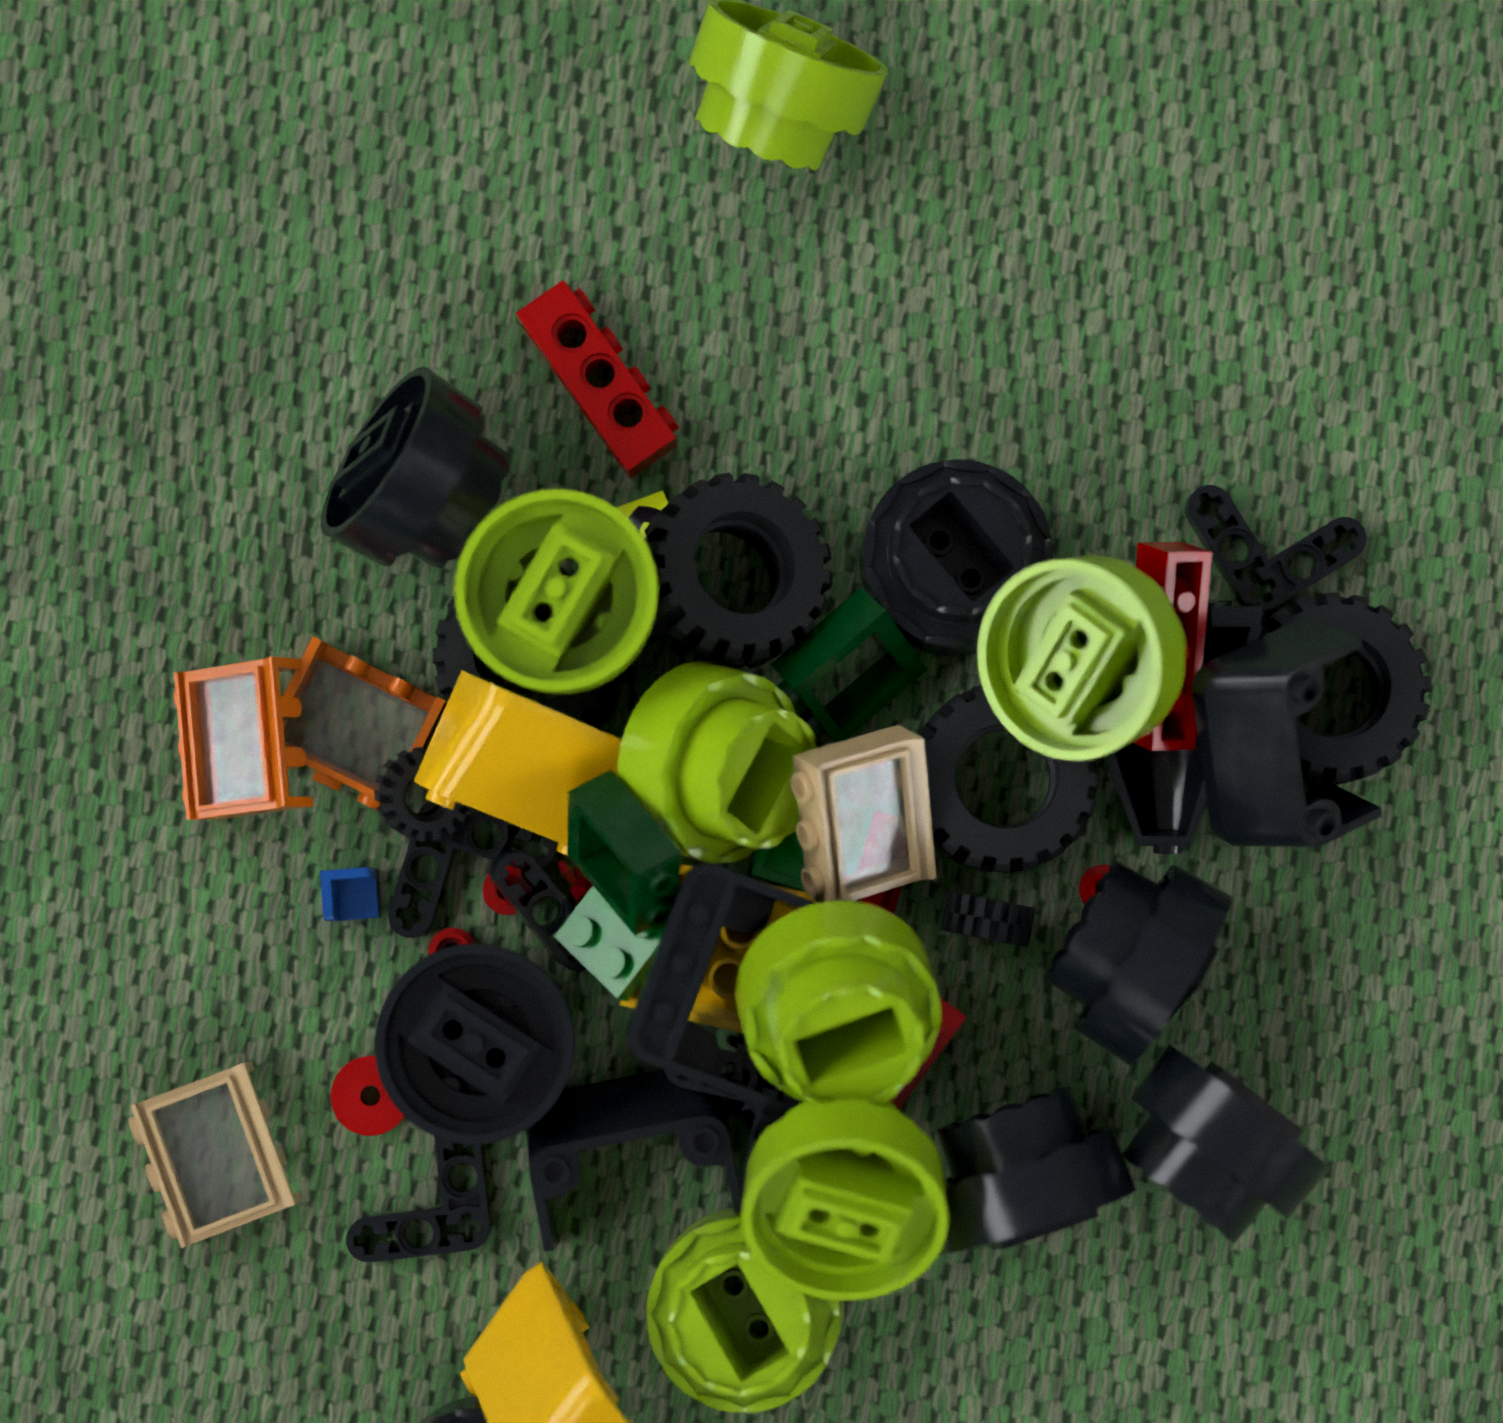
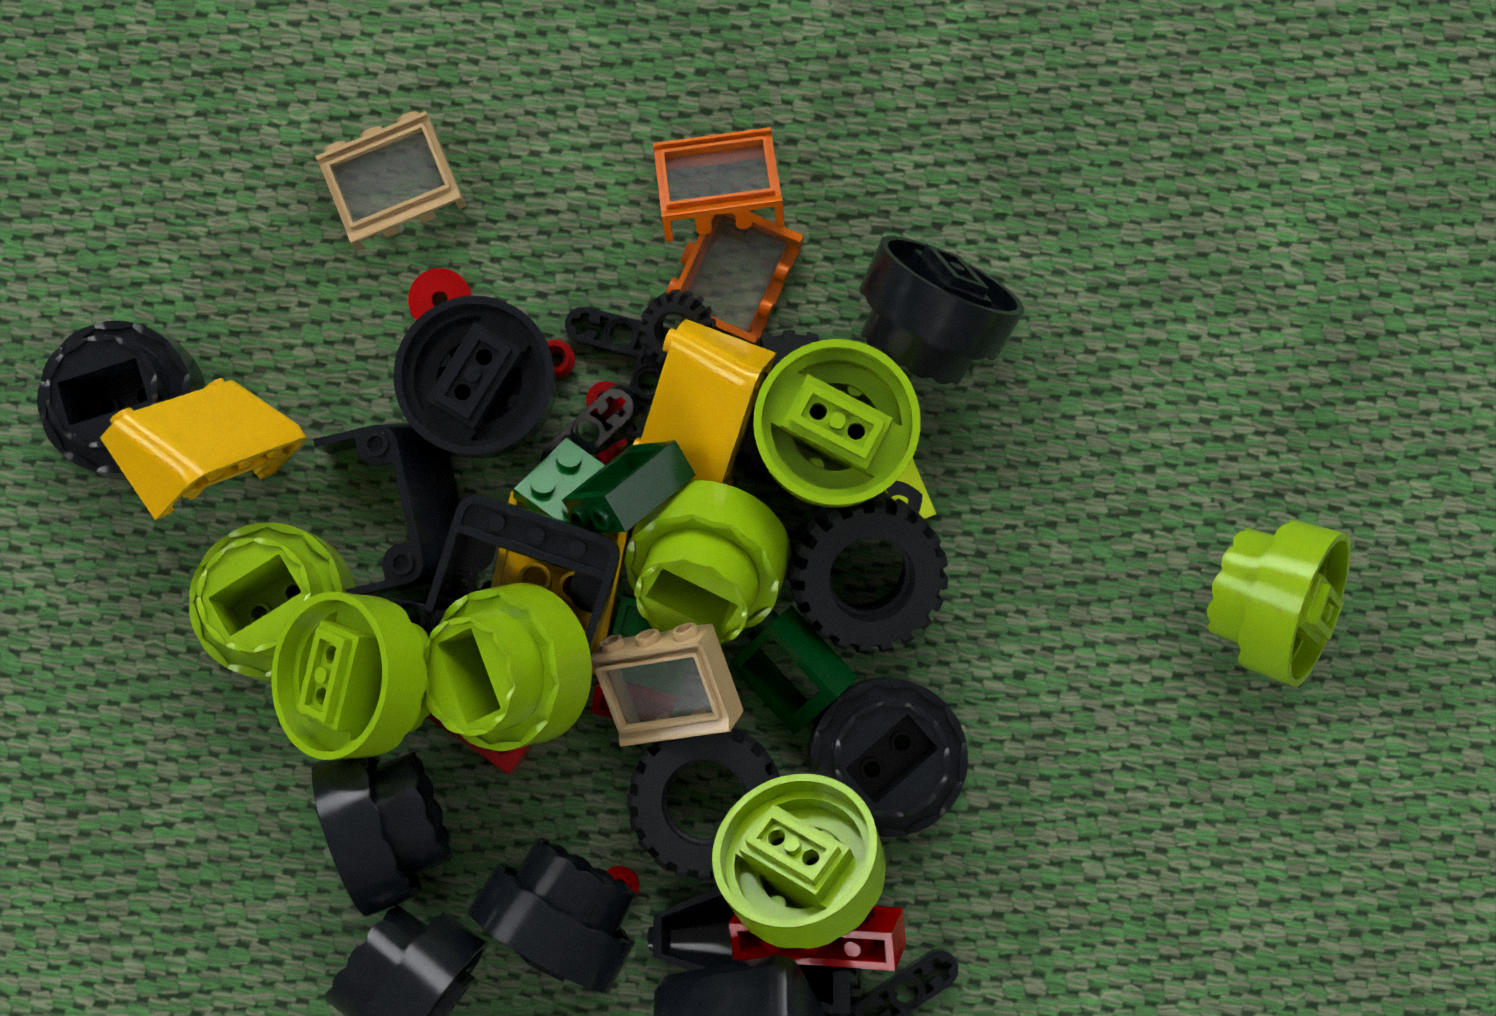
camera: 95 degrees right, 0 degrees up
(350, 894) = (598, 275): blue panel -> none
(453, 1205) = (354, 369): black beam -> none
(564, 309) = (1069, 412): red brick -> none
(988, 919) = (589, 790): black tyre -> none

